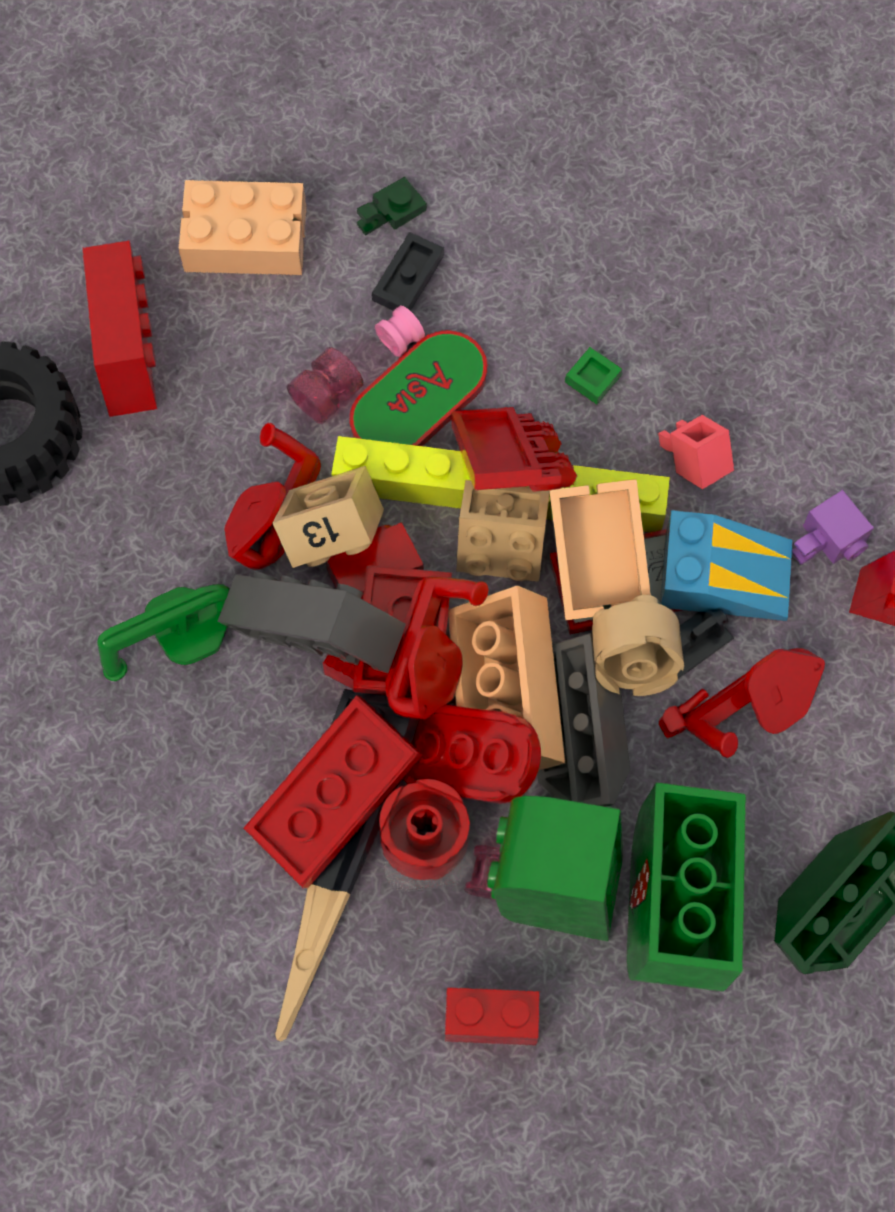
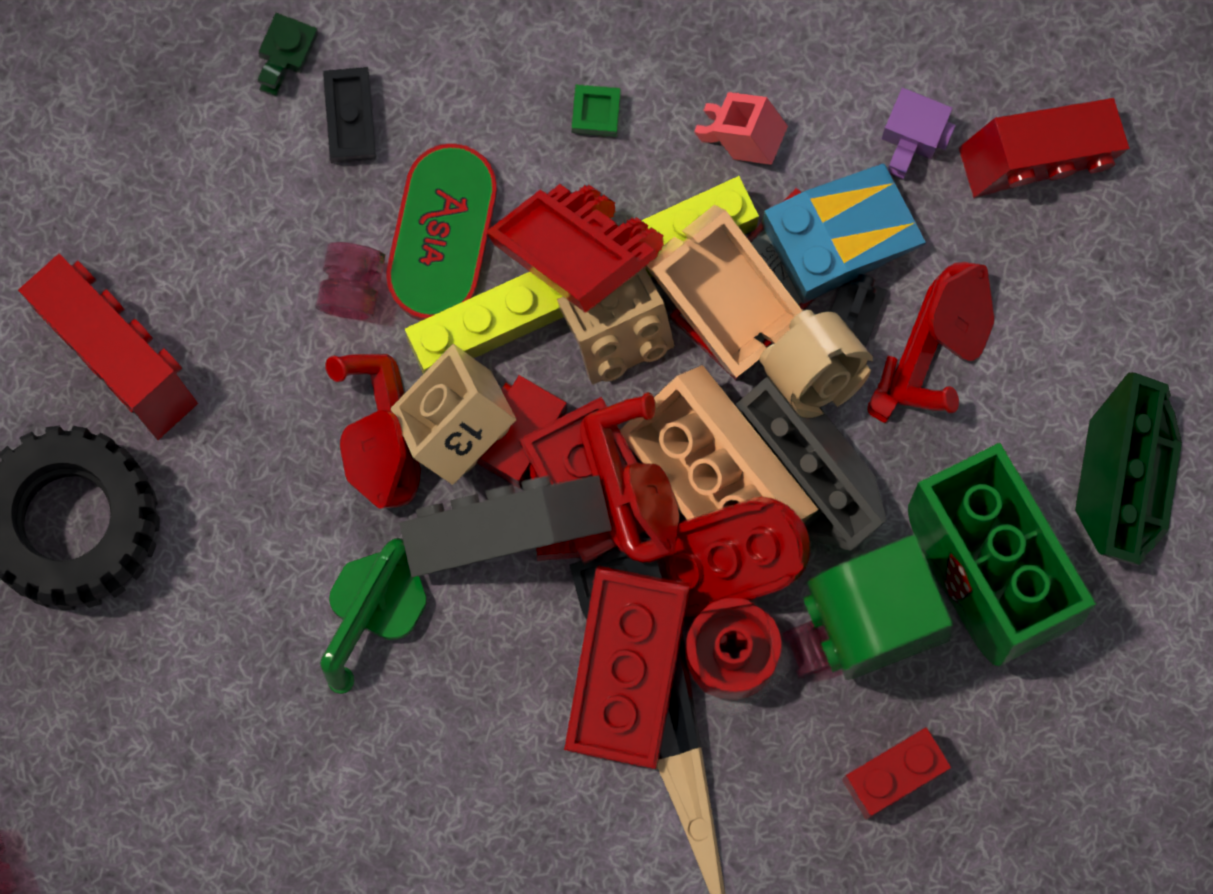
camera: 35 degrees left, 10 degrees up
(243, 227) = (157, 167): light nougat piece -> none
(400, 330) = (382, 179): bright pink wheel -> none

